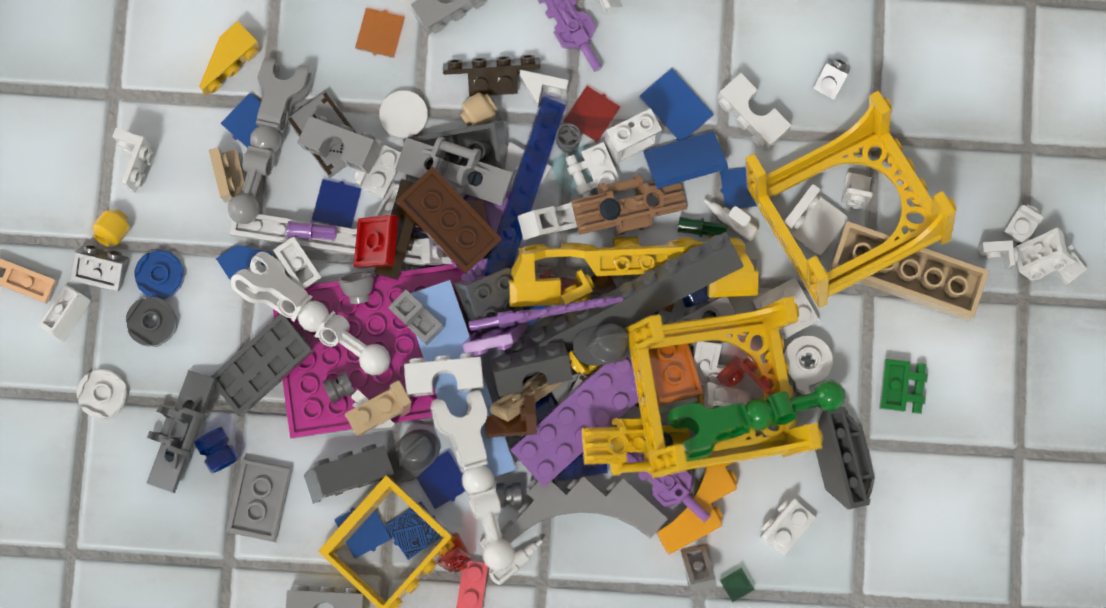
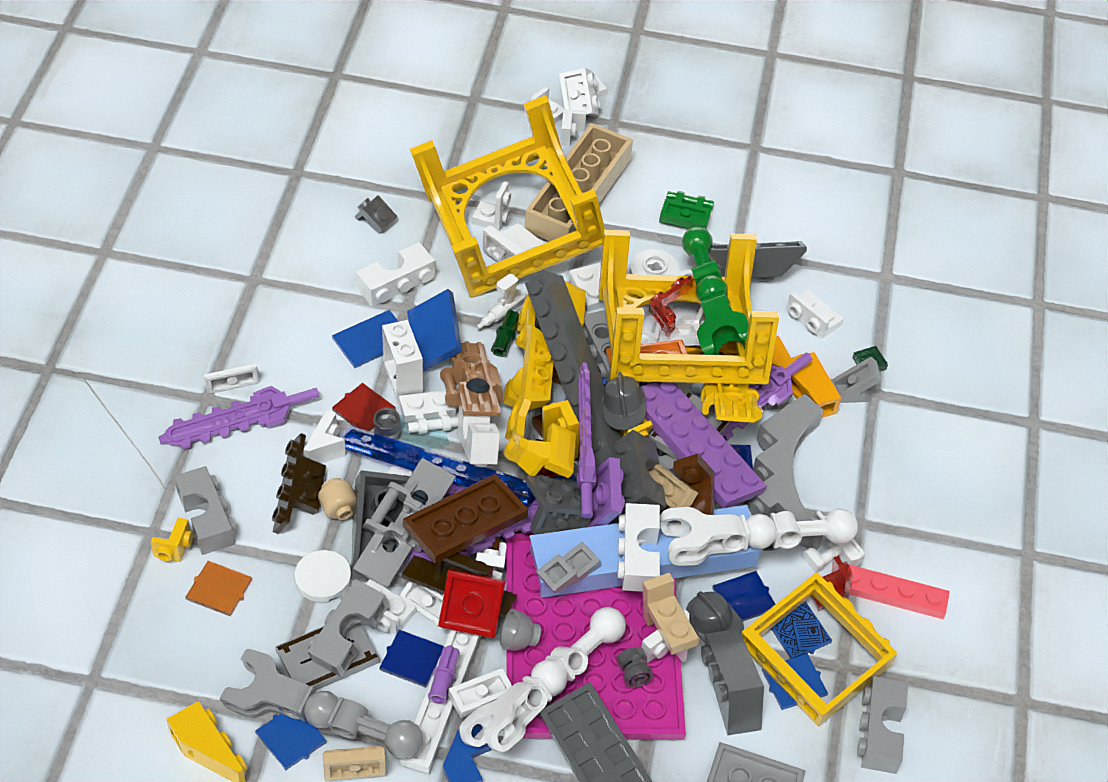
camera: 85 degrees left, 30 degrees down
(735, 189) = (468, 305): blue piece -> none

